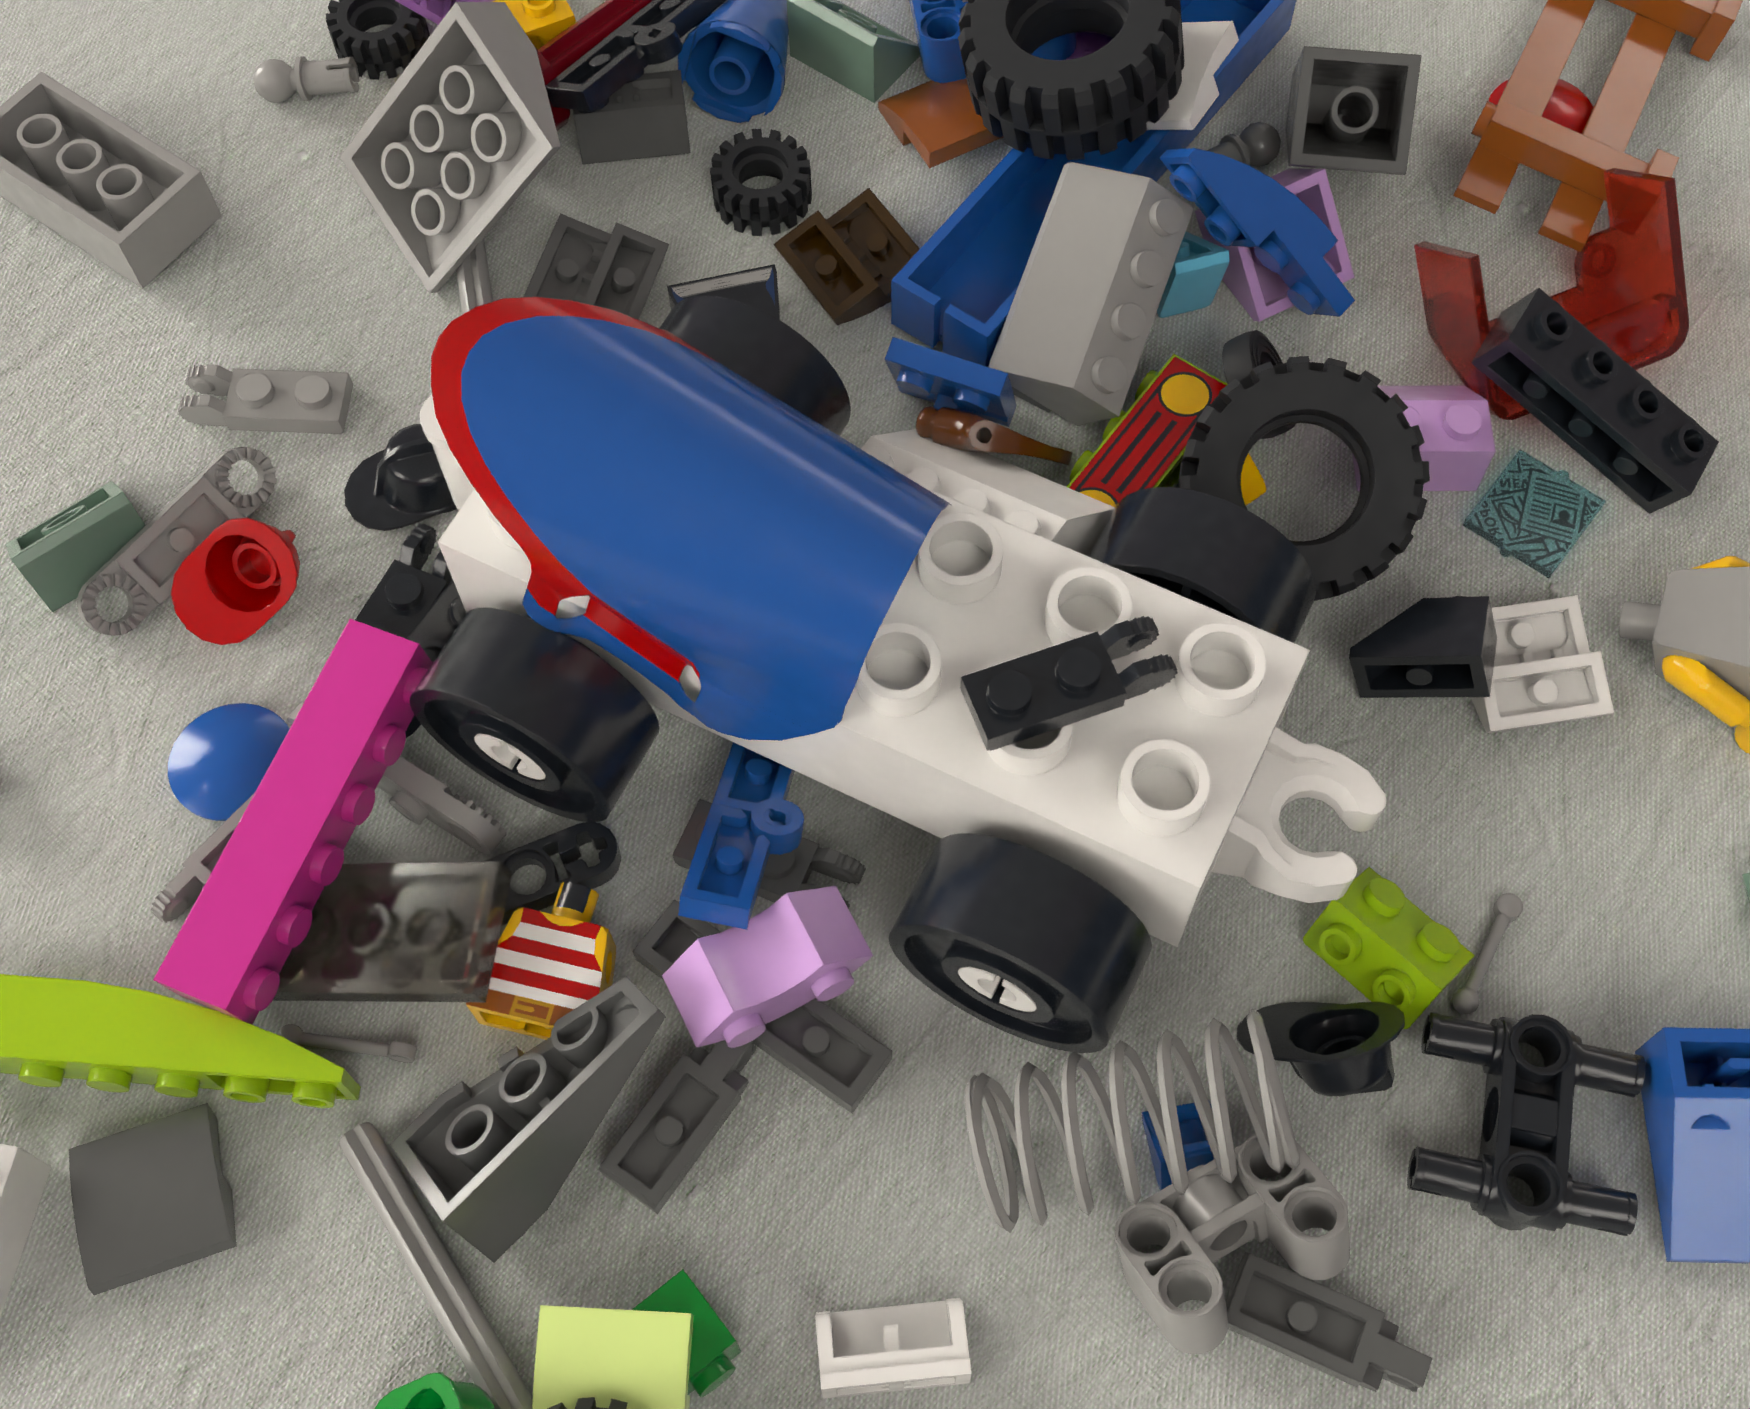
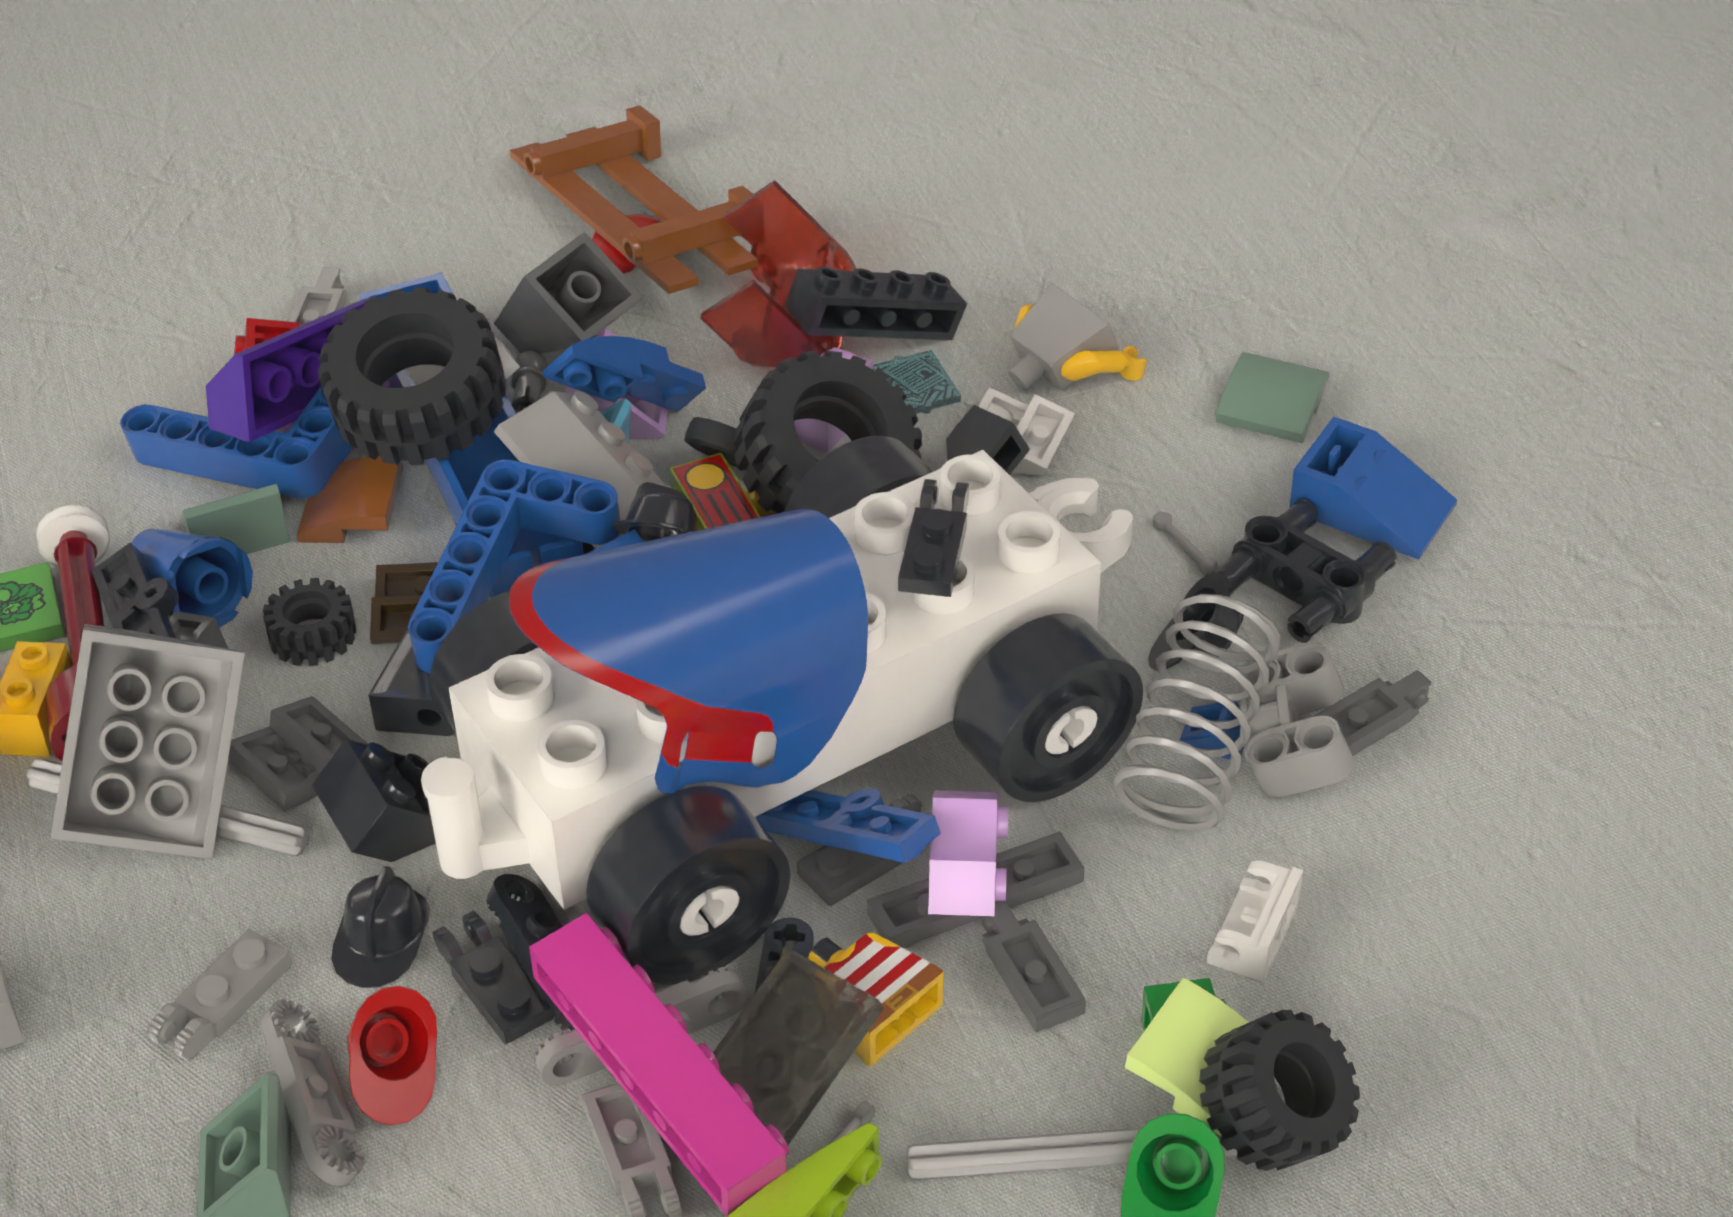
camera: 60 degrees left, 20 degrees down
(224, 758) = (539, 1134): blue dish -> none
(507, 1144) = (982, 1047): dark grey wedge -> none
(898, 265) = (503, 502): none -> blue beam
(1048, 393) = (658, 513): none -> black piece
(1387, 946) = (1152, 579): lime bracket -> none

